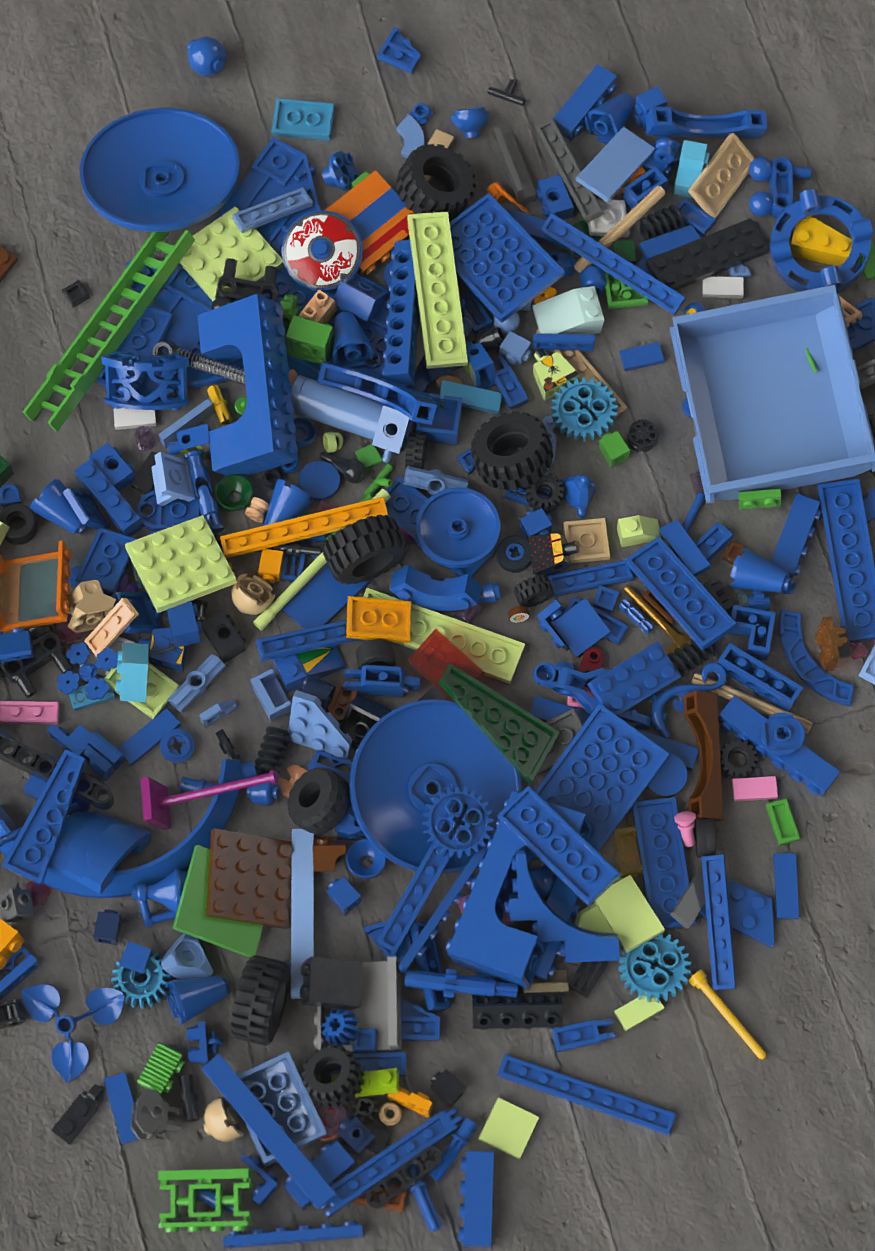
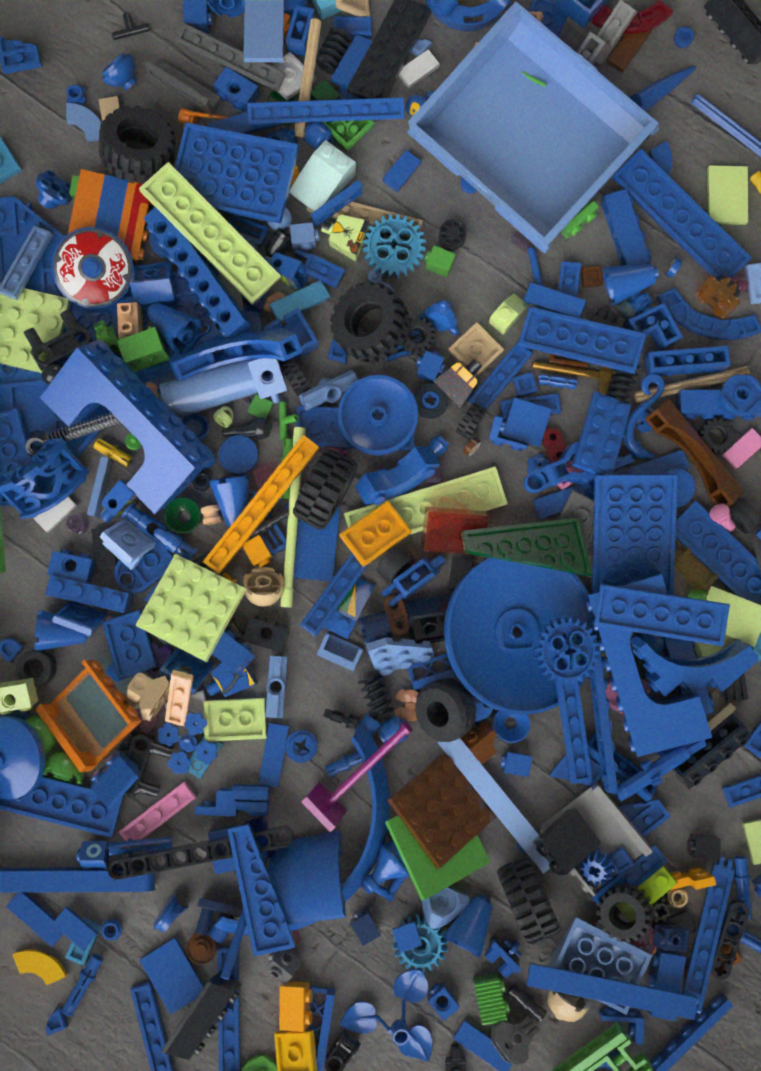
camera: 35 degrees left, 15 degrees up
(124, 1048) = (445, 1009): none -> blue brick
(133, 668) = (224, 721): medium azure brick -> none
(217, 712) = (310, 696): medium blue tile -> none
(812, 596) = (673, 267): none -> blue tile

